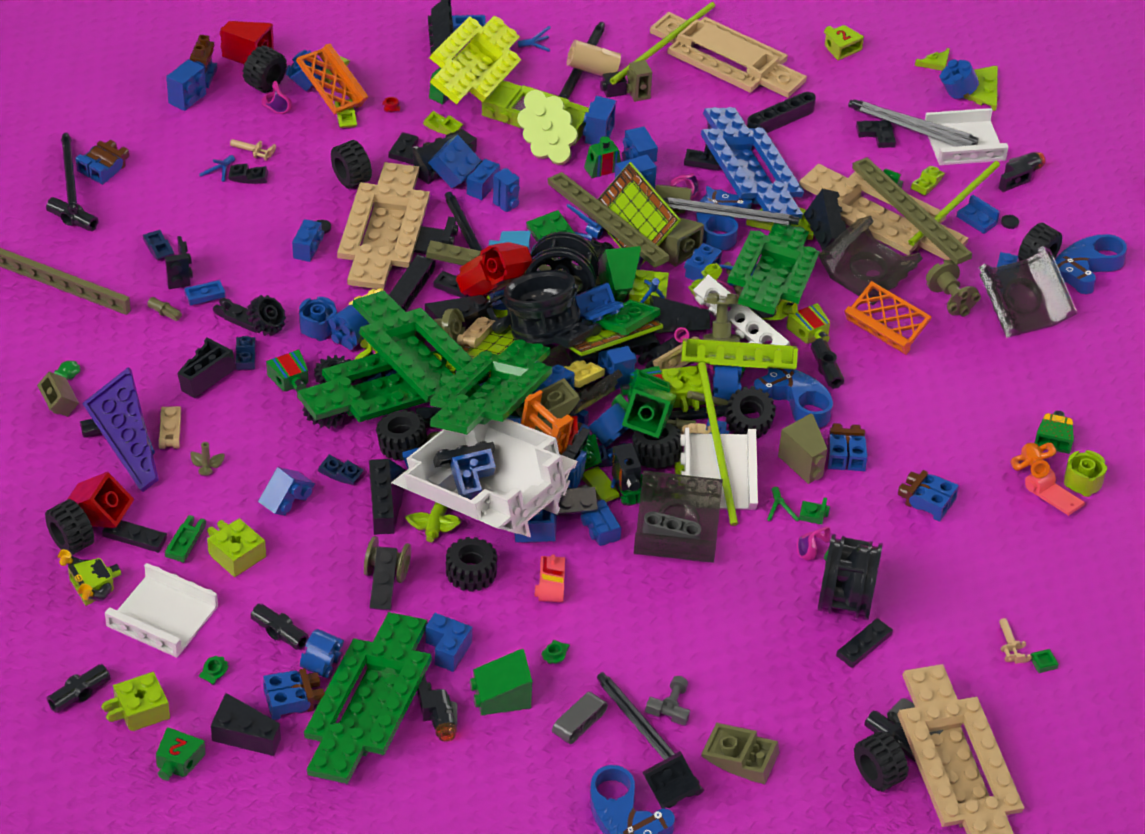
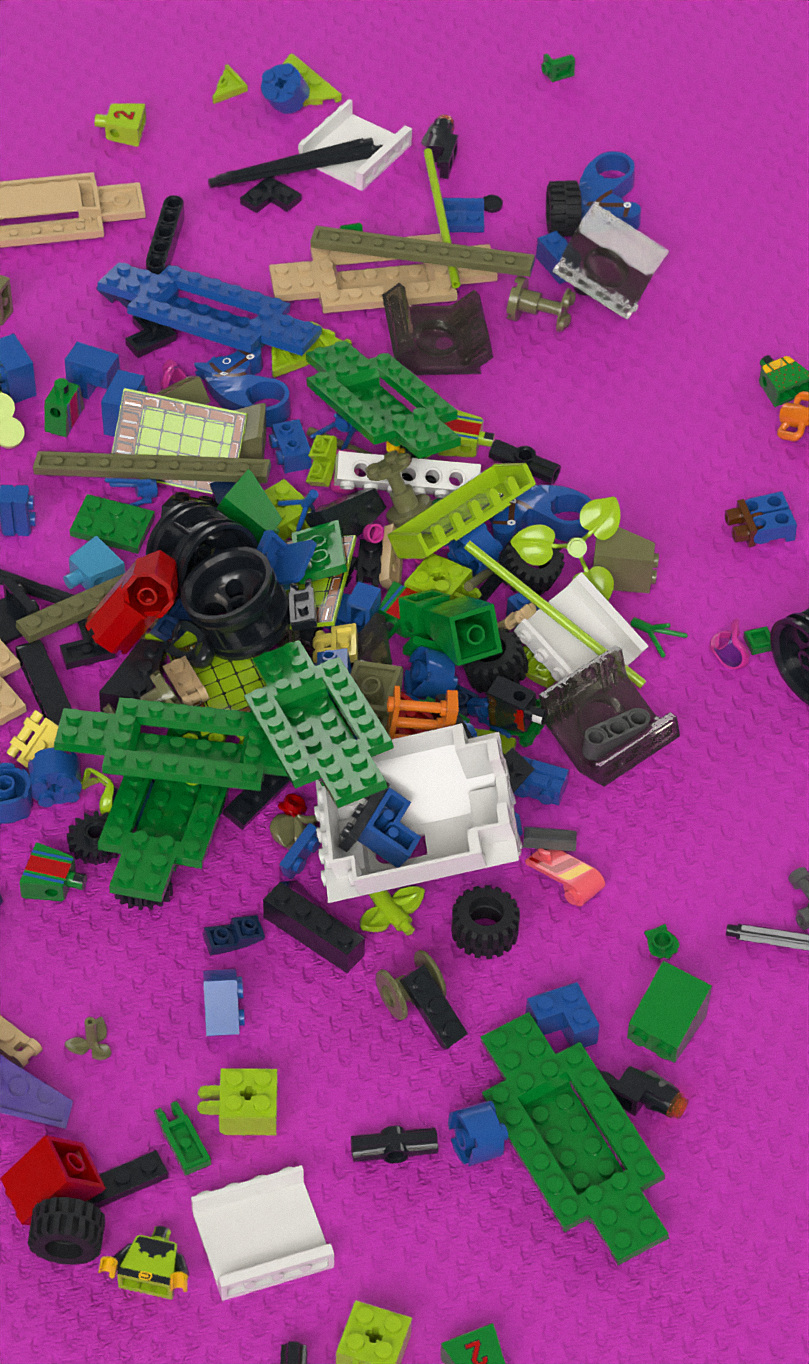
camera: 45 degrees left, 5 degrees up
(214, 669) = (390, 1244): green animal -> none
(244, 727) = (501, 1273): black wedge -> none
(291, 692) = (495, 1200): blue hips -> none
(401, 433) = (247, 831): black tyre -> none
(567, 555) = (550, 839): none -> dark grey tile
(579, 717) = (765, 985): dark grey beam -> none
(731, 211) = (266, 369): piece -> none
(805, 410) = (598, 516): none -> lime plant
(814, 512) = (693, 615): green bracket -> none
(825, 217) = (353, 318): black wedge -> none
(847, 440) = (650, 525): blue hips -> none
(881, 331) = (522, 394): orange fence -> none
(928, 180) = (375, 213): lime slope -> none

